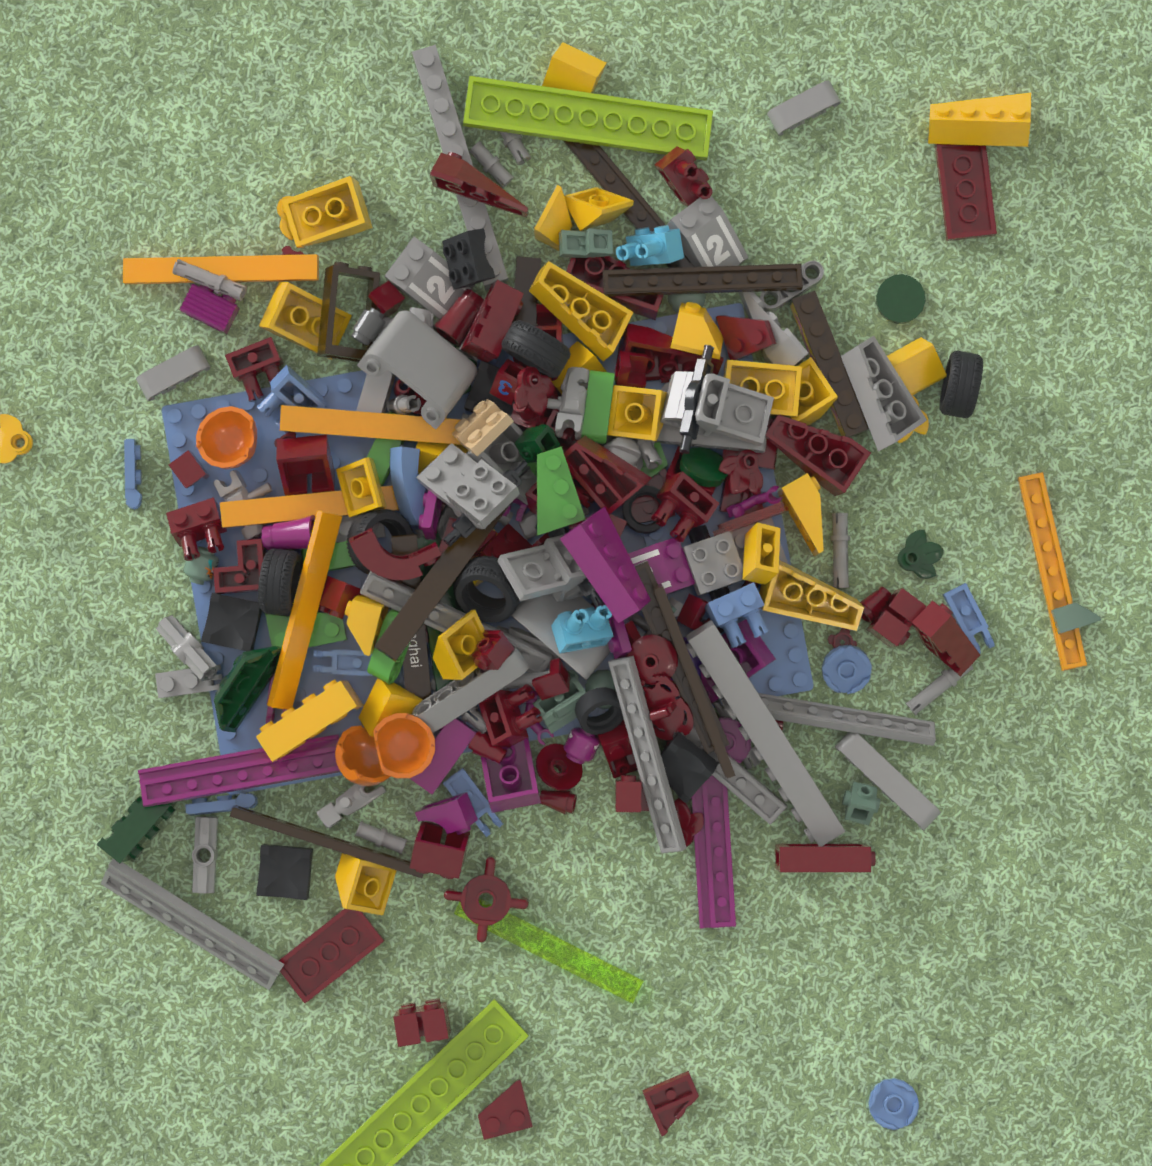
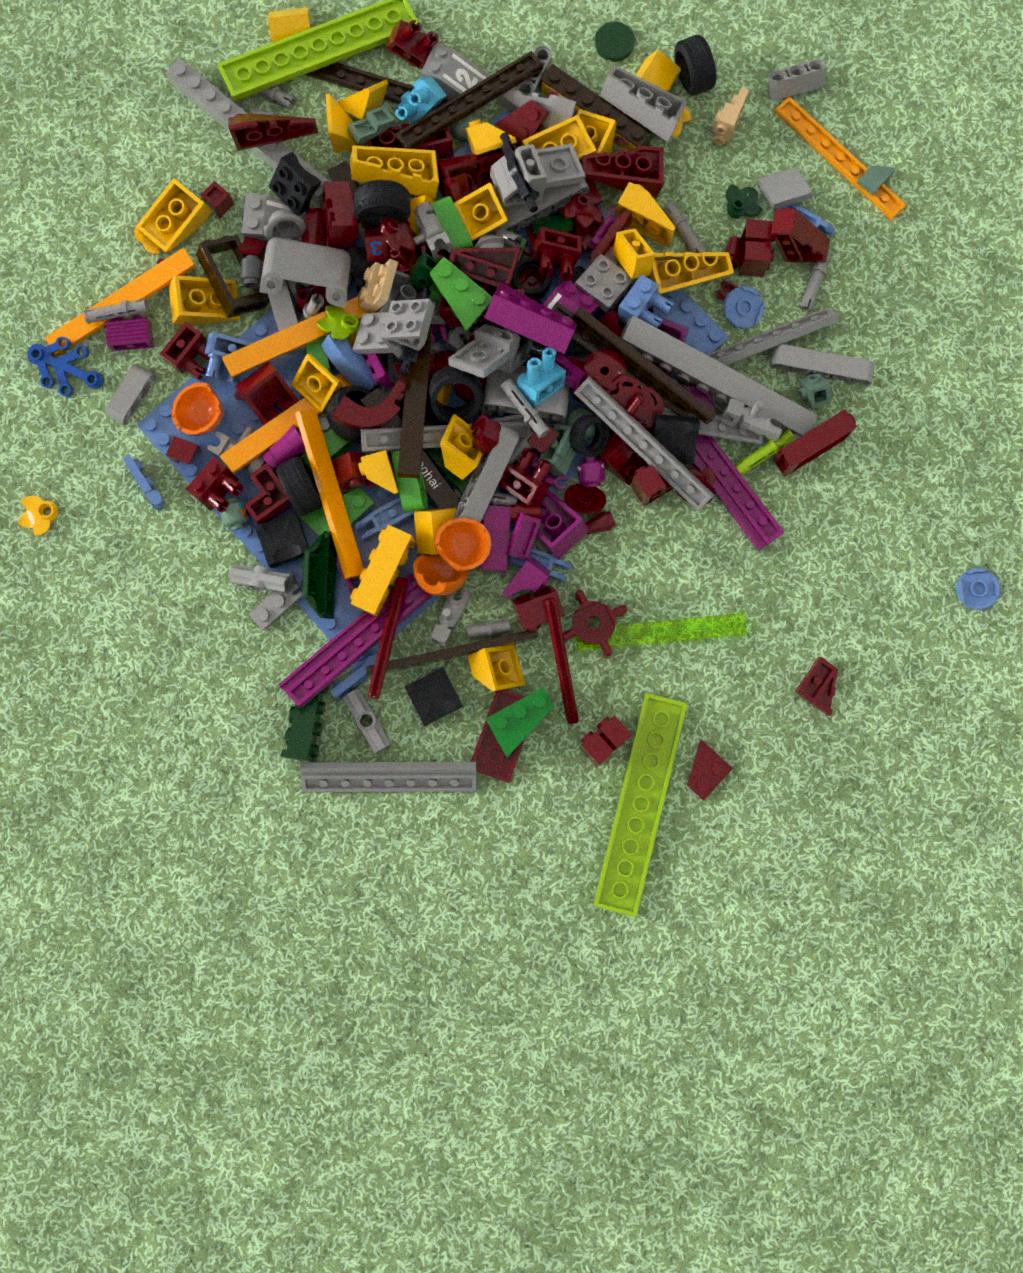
camera: 30 degrees left, 5 degrees down
(123, 298) = (61, 365): none -> blue plant
(271, 791) = (387, 638): none -> dark red axle
(350, 951) = (519, 719): none -> green wedge
(383, 220) = (217, 198): none -> dark red panel
(416, 440) = (338, 323): none -> lime plate
(428, 920) = (561, 661): none -> dark red axle
(431, 296) = (284, 224): none -> light grey hat
(469, 772) = (523, 536): none -> magenta tile
(550, 675) = (510, 388): none -> light grey pin
(769, 834) = (765, 452): none -> lime pin
(772, 798) = (752, 419): none -> light grey piece
(955, 464) = (728, 118): none -> tan plate
(971, 570) = (785, 188): none -> light grey tile
(1061, 461) = (797, 79): none -> light grey beam

